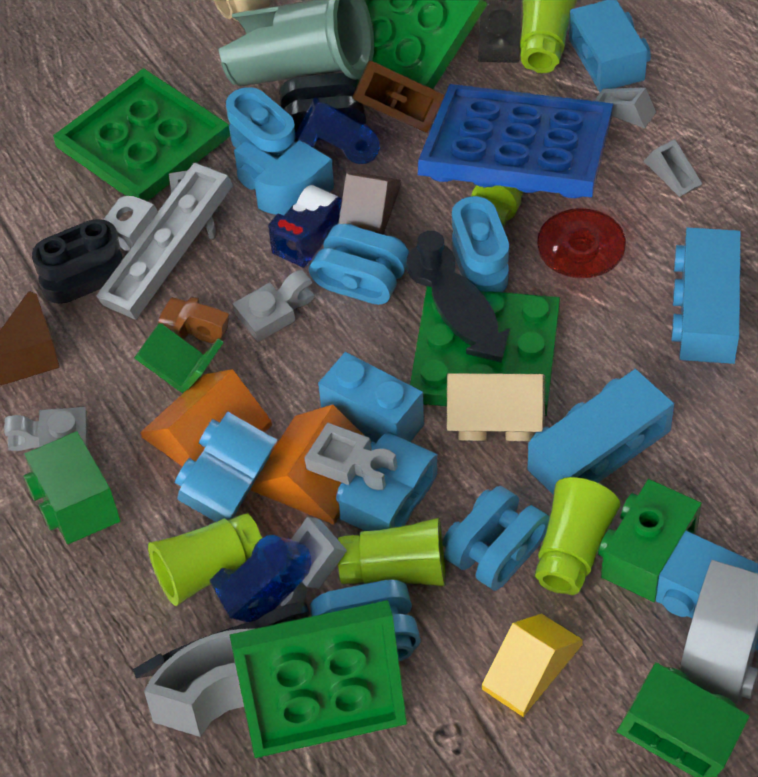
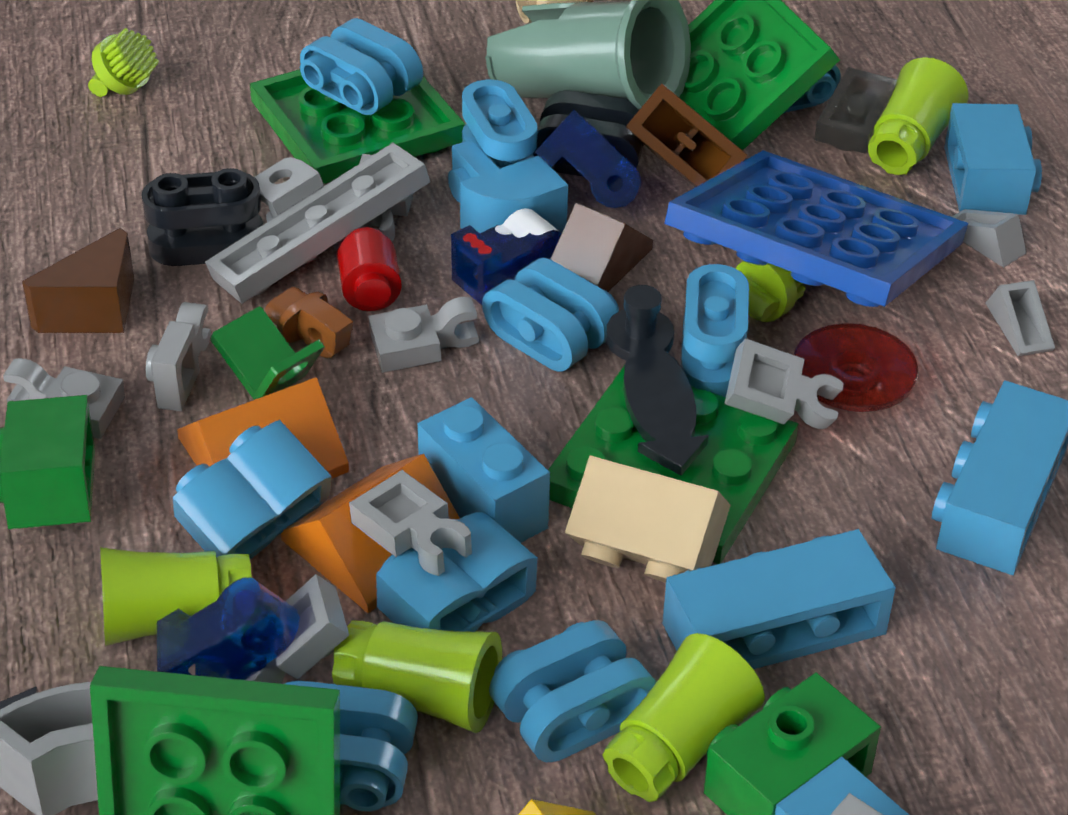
camera: 15 degrees right, 10 degrees down
(115, 383) = (175, 361): none -> light grey plate
(136, 101) = (361, 66): none -> dark azure brick
(215, 266) = (368, 270): none -> red brick
(538, 279) = (772, 386): none -> light grey plate

